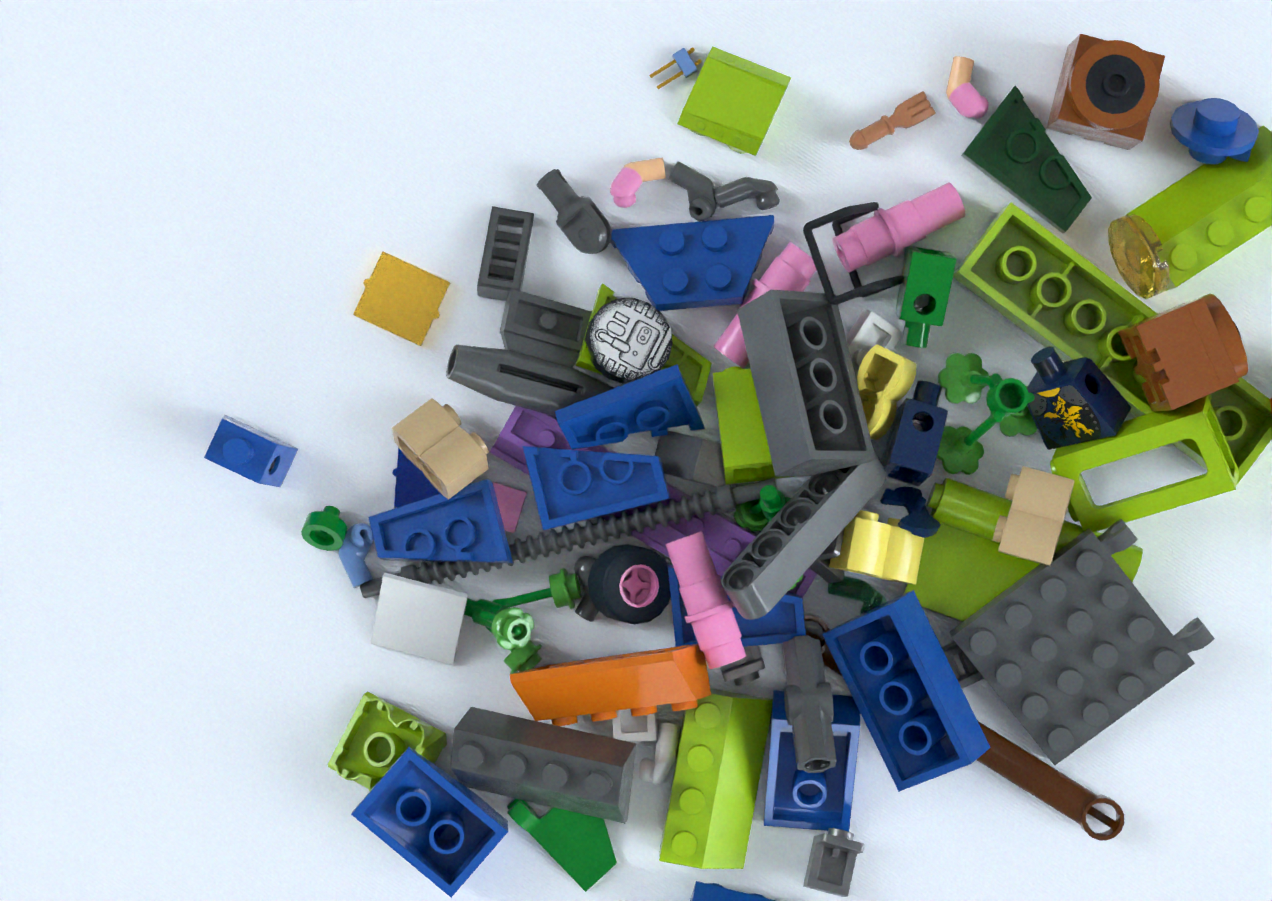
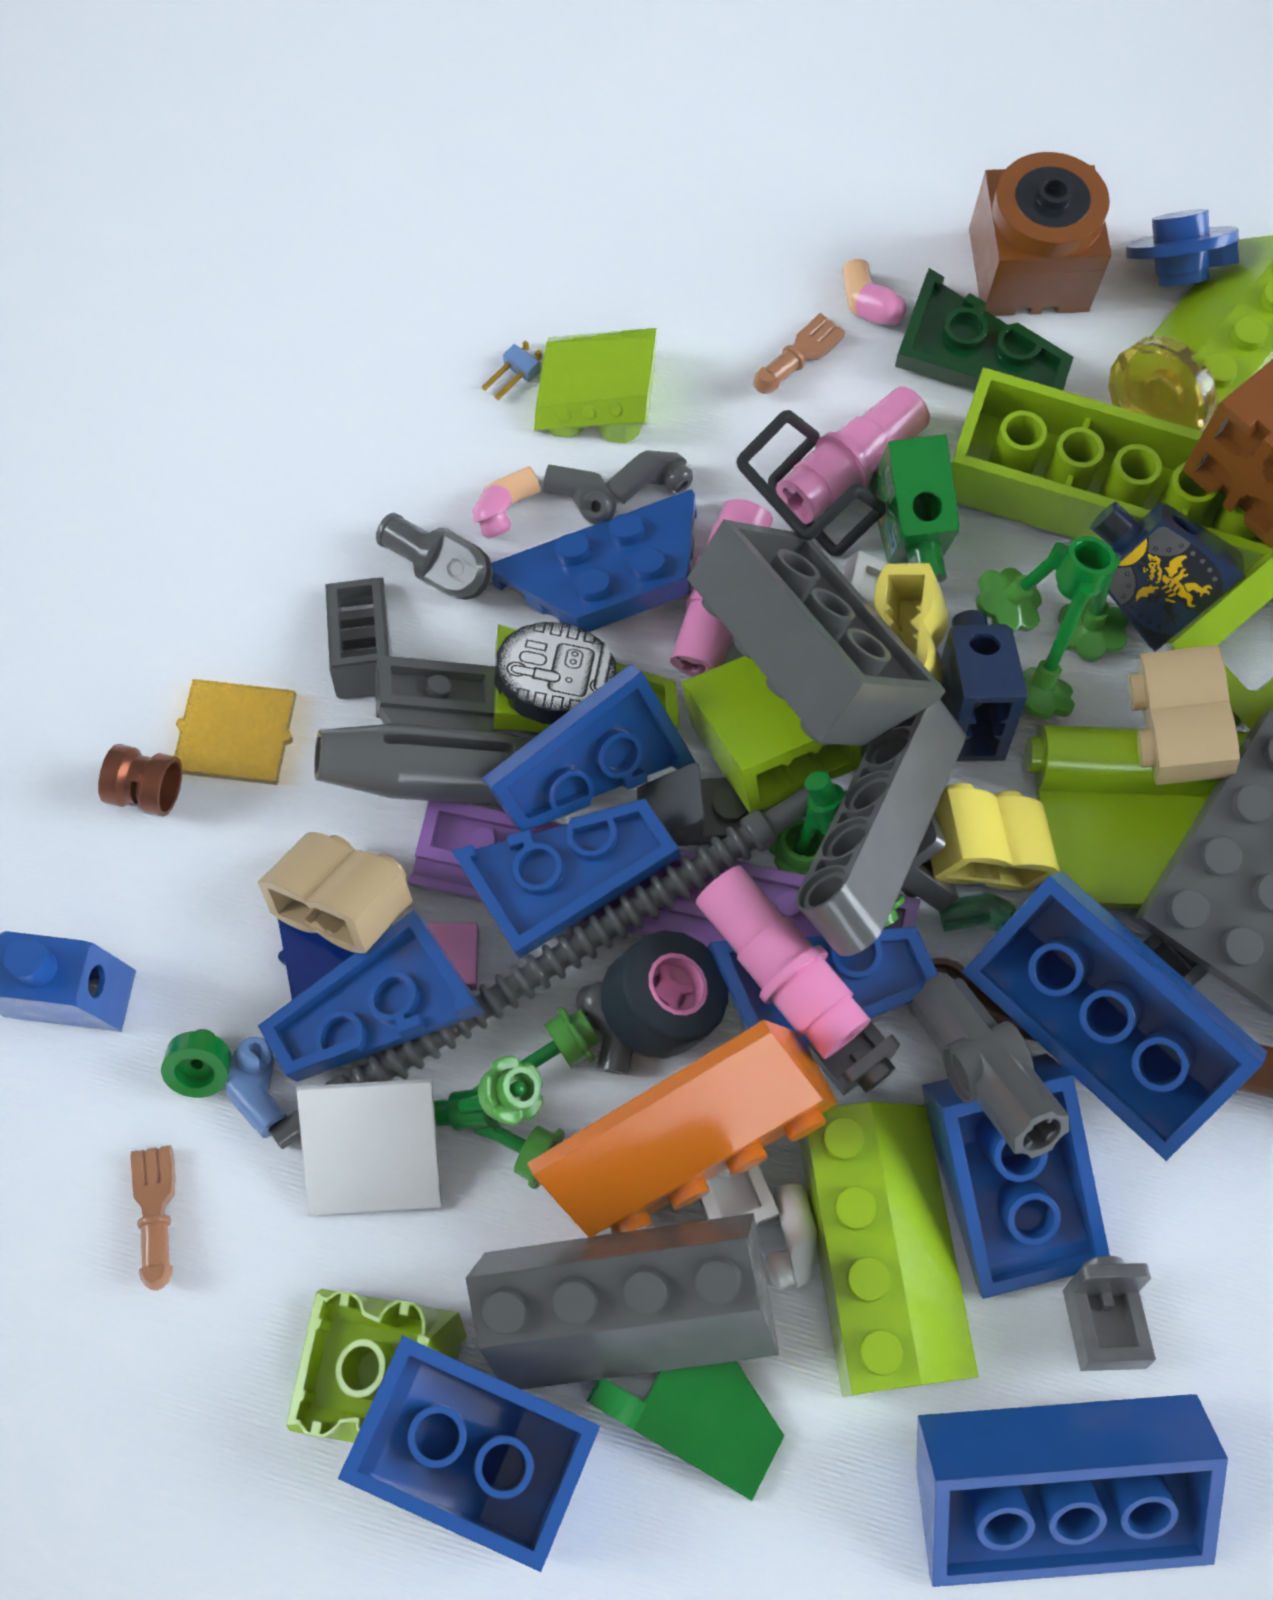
camera: 15 degrees left, 20 degrees down
(279, 597) = (153, 1190): none -> nougat piece
(331, 322) = (140, 780): none -> copper wheel
(918, 518) = (1016, 777): dark blue piece -> none

